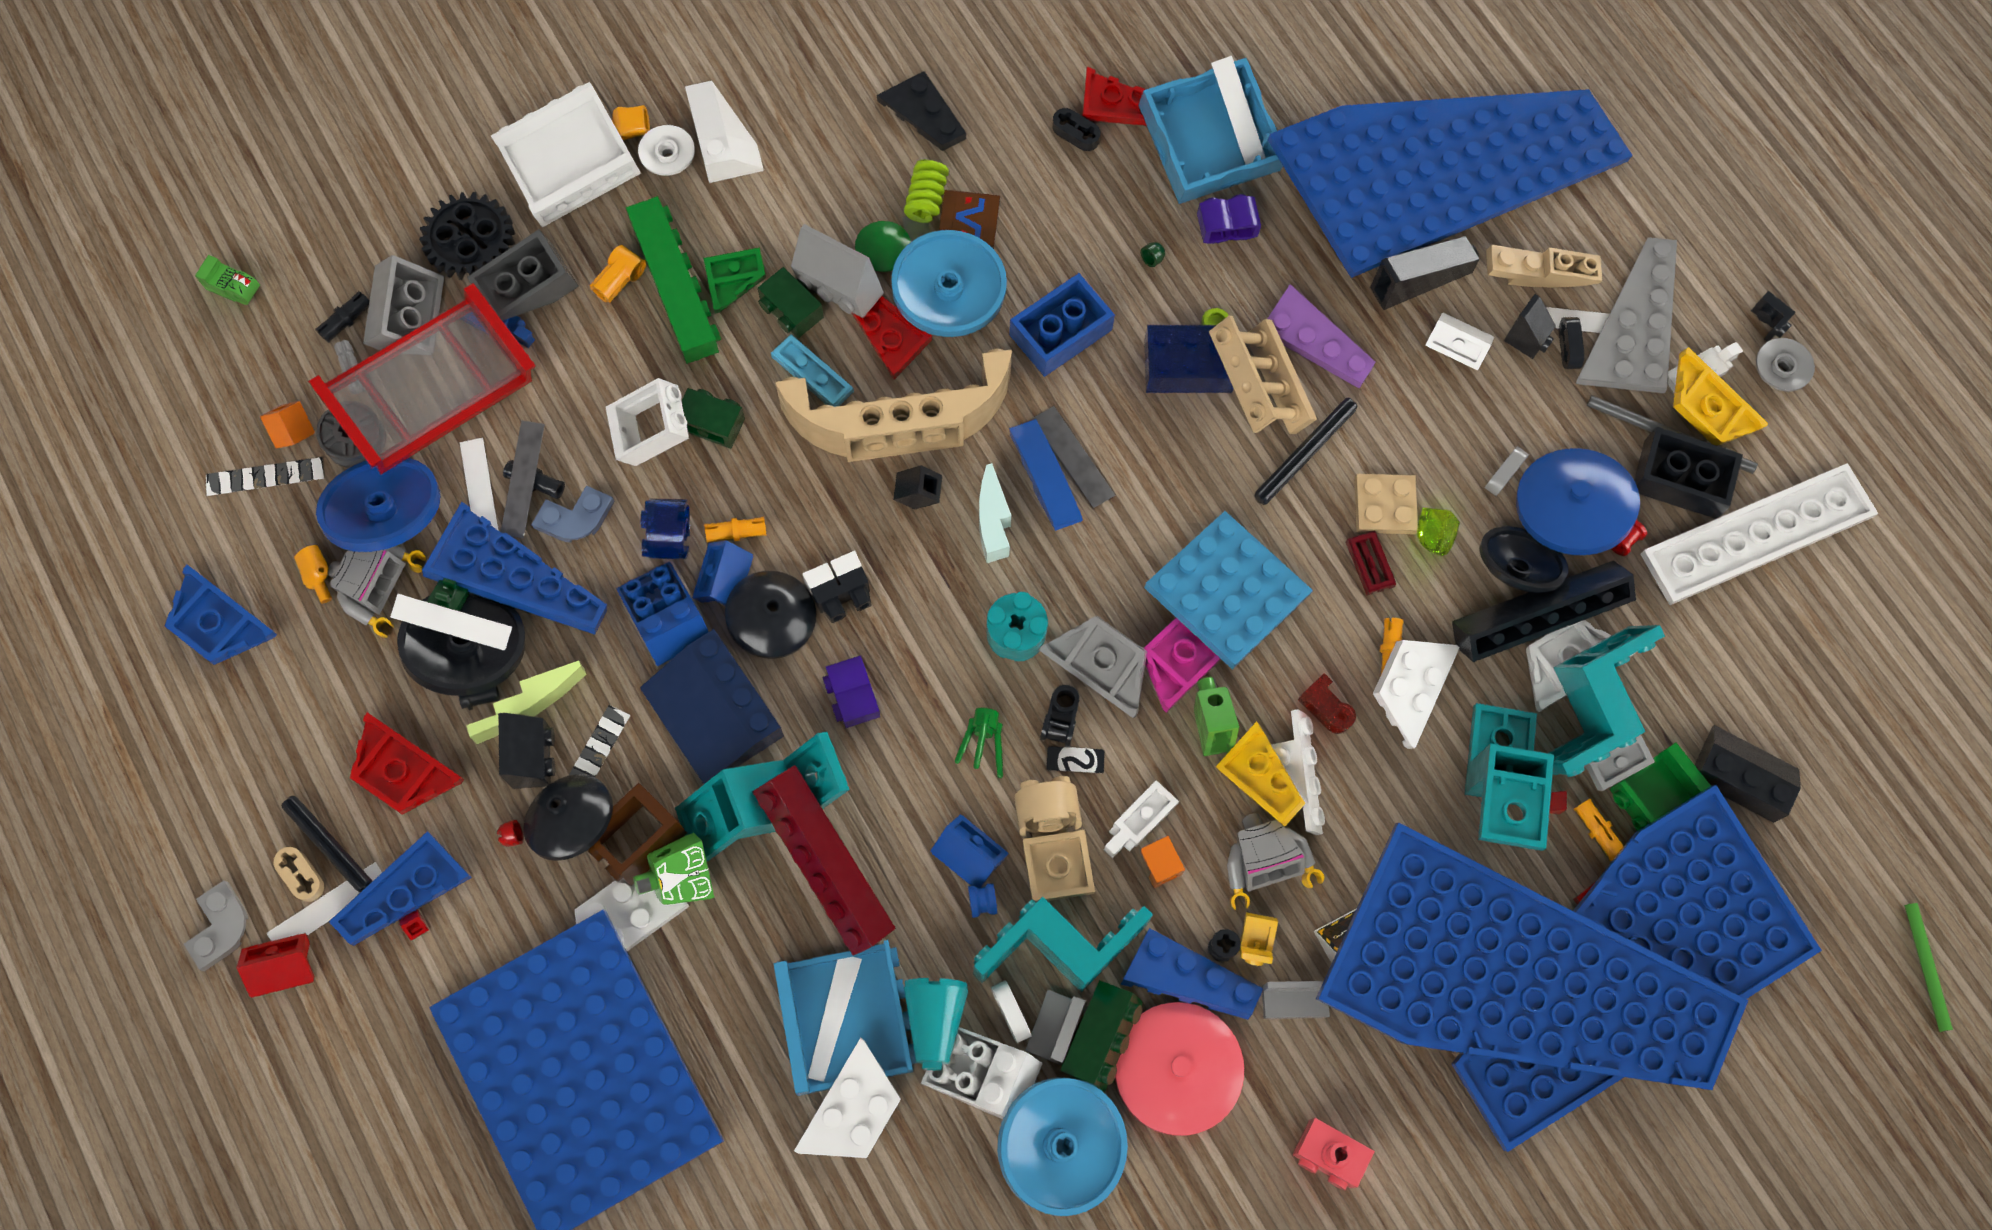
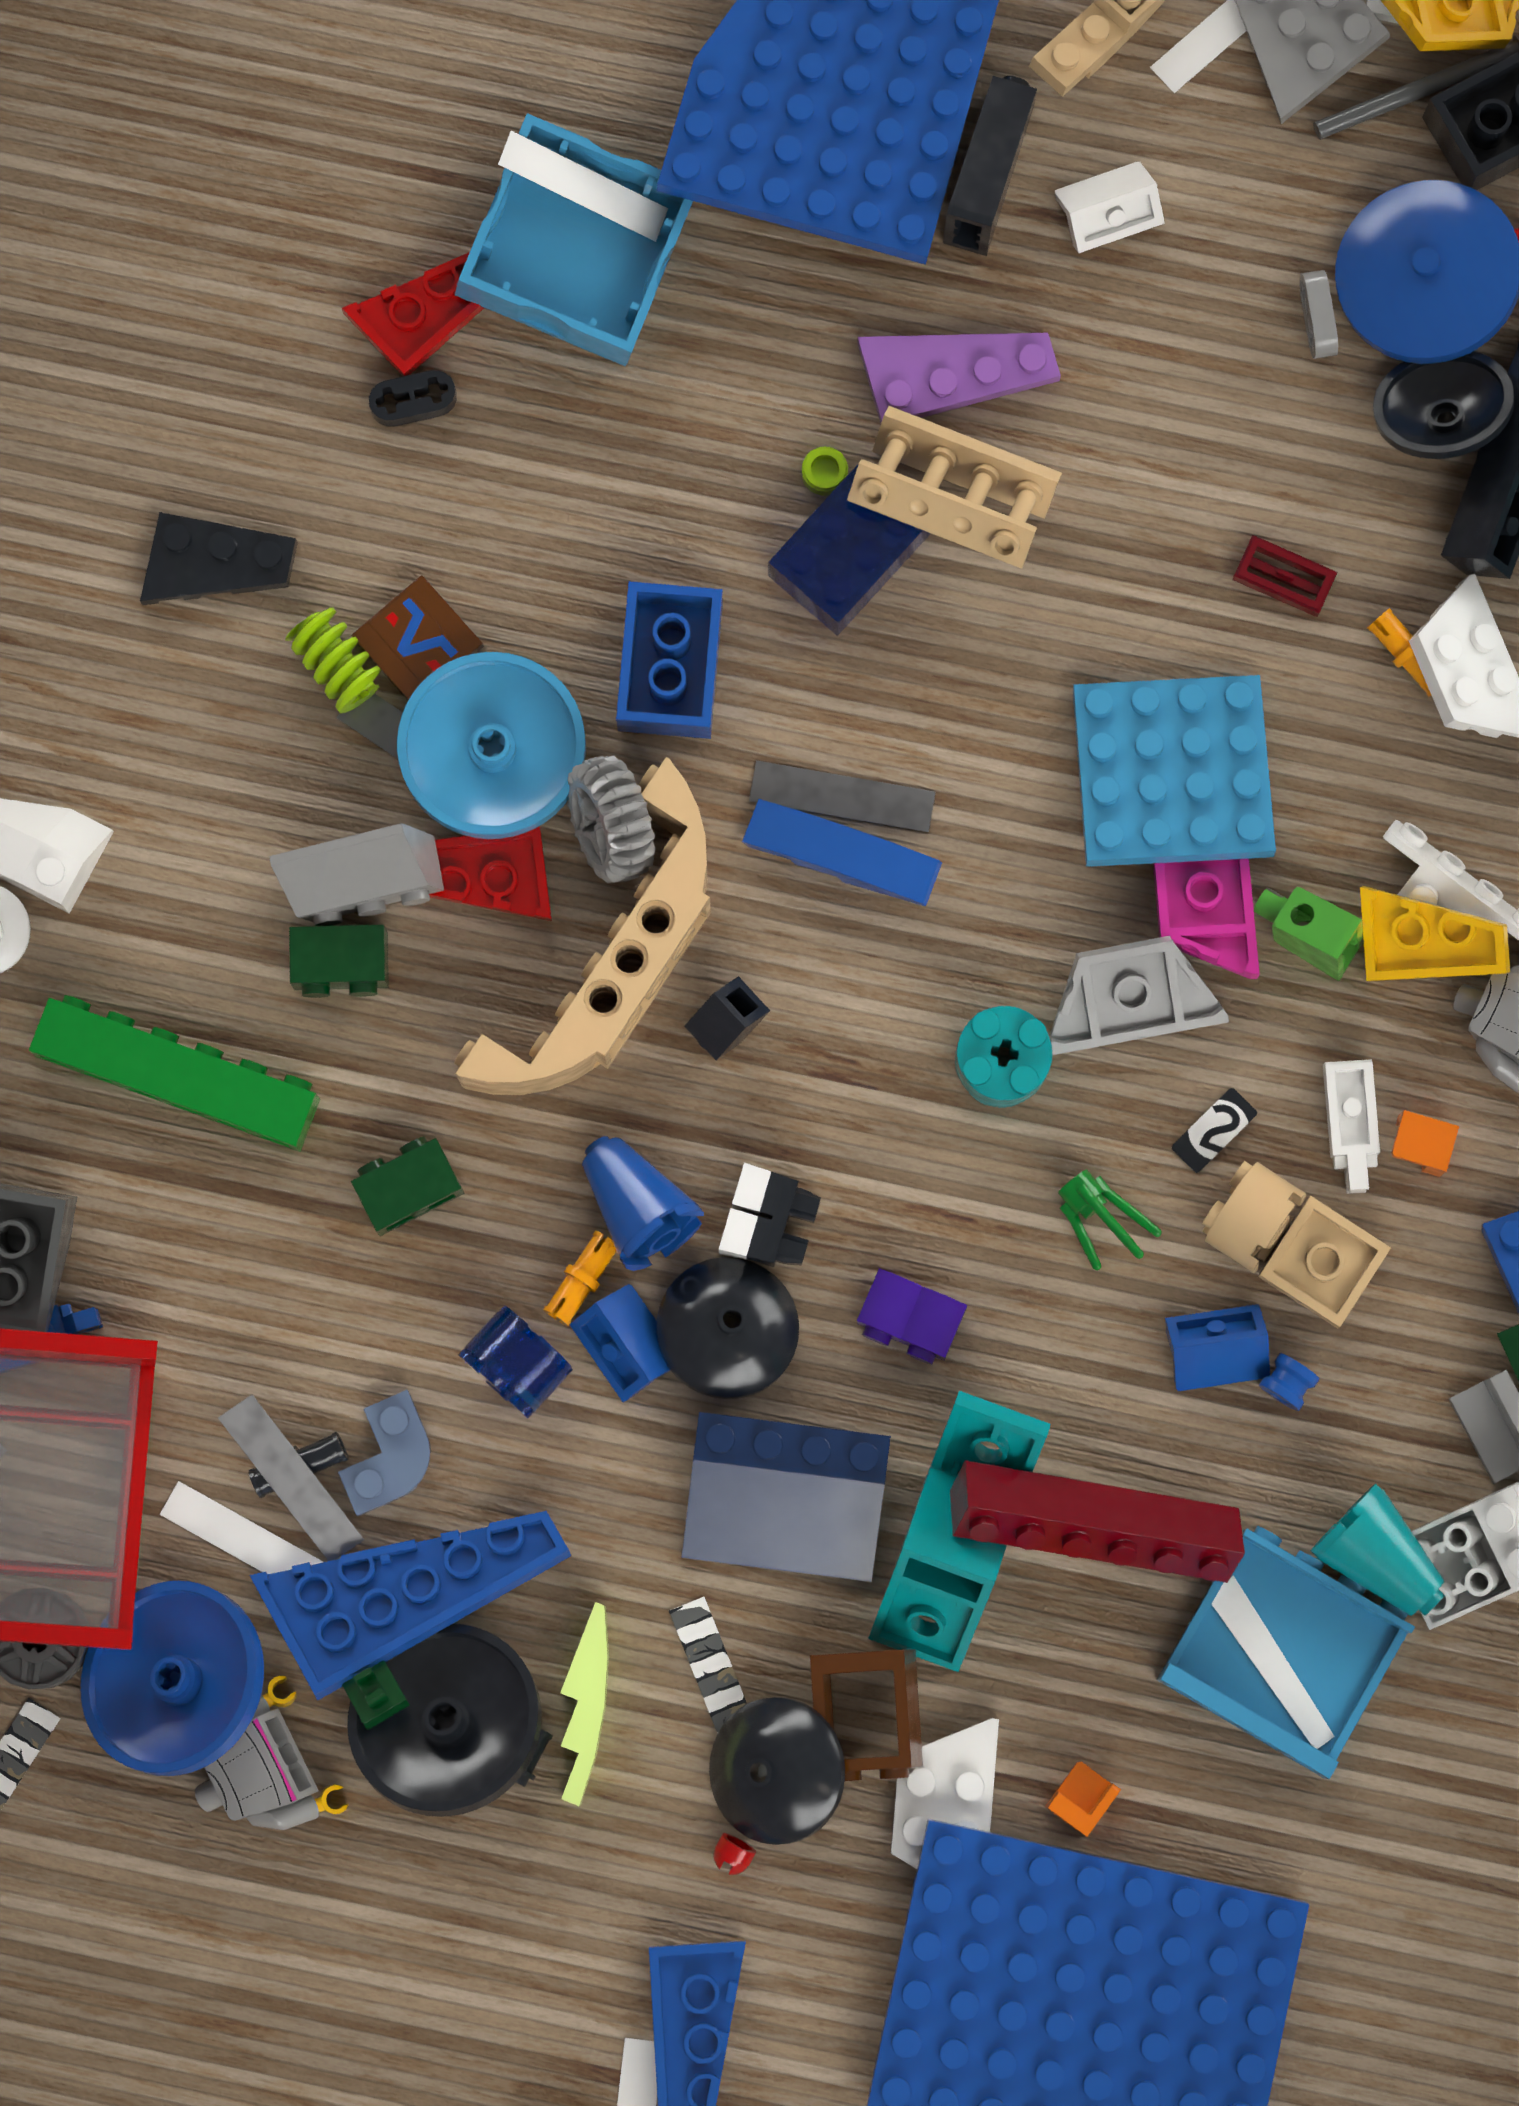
camera: 45 degrees left, 10 degrees up
(213, 621) = (143, 1996): blue wing -> none
(314, 571) = (189, 1825): light orange piece -> none
(326, 843) = (556, 2077): black axle -> none
(398, 769) = (535, 1922): red wing -> none
(413, 925) = (744, 2052): red piece -> none
(451, 622) = (414, 1713): white sticker -> none
(525, 751) = (654, 1753): black slope -> none
(621, 268) = (102, 1121): light orange piece -> none
(622, 417) = (332, 1301): white window -> none
(662, 612) = (613, 1451): blue slope -> none
(677, 872) = (961, 1699): bright green torso -> none
(681, 980) = (1082, 1798): none -> orange panel
(733, 275) = (236, 996): green wing -> none
(791, 523) = (638, 1203): none -> blue cone
(819, 376) = (452, 1010): medium azure tile -> none
(852, 1110) = (1396, 1731): white wing -> none
(882, 244) = (358, 778): green dish -> none
(961, 355) = (610, 819): none -> light grey gear
(993, 517) = (836, 961): light aqua slope -> none
(1011, 1011) = (1441, 1461): white beam -> none
(1060, 721) = (1156, 1105): black piece -> none
(1060, 943) = (1421, 1338): teal bracket -> none
(1152, 254) = (668, 462): dark green hinge -> none
(1228, 219) = (707, 329): dark purple brick -> none
(1305, 451) = (1083, 519): black axle -> none
(1327, 707) = (1409, 790): clear red leg -> none
(1386, 504) = (1230, 489): tan plate -> none
(1437, 530) = (1318, 465): clear neon green brick -> none
(1532, 329) = (1177, 114): black slope -> none
(1571, 343) = (1231, 82): black beam -> none

